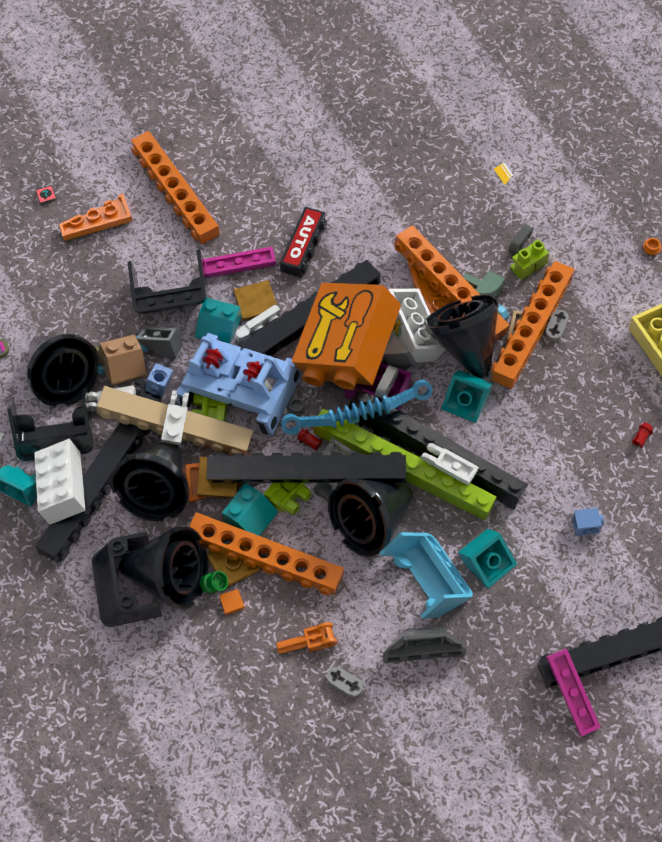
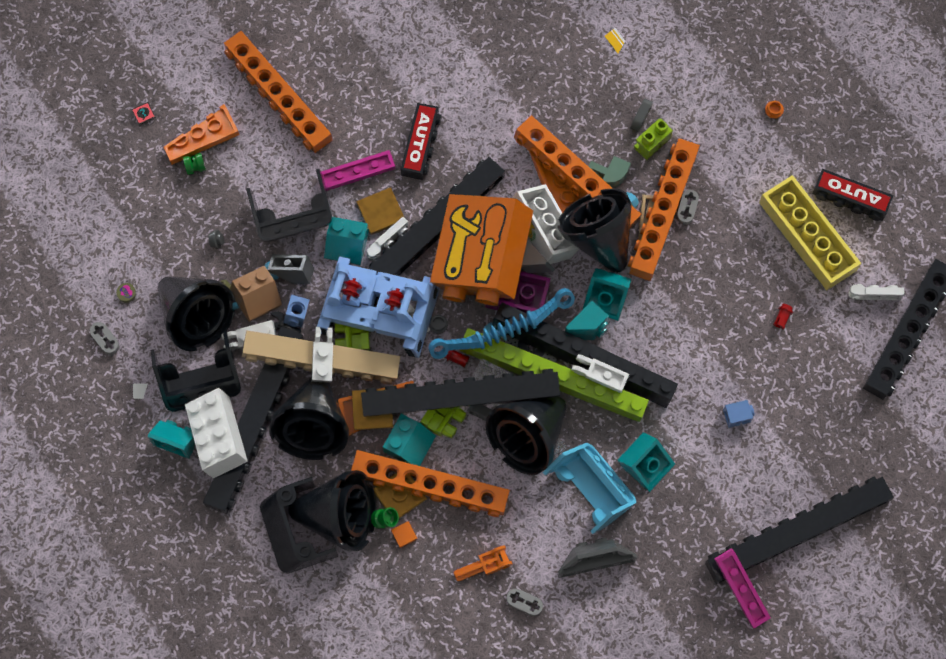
camera: 10 degrees left, 10 degrees up
(85, 241) = (194, 164): none -> green wheel
(93, 309) = (216, 239): none -> dark grey plate
(387, 381) = (528, 293): light grey beam -> none
(445, 417) = (589, 323): none -> teal slope

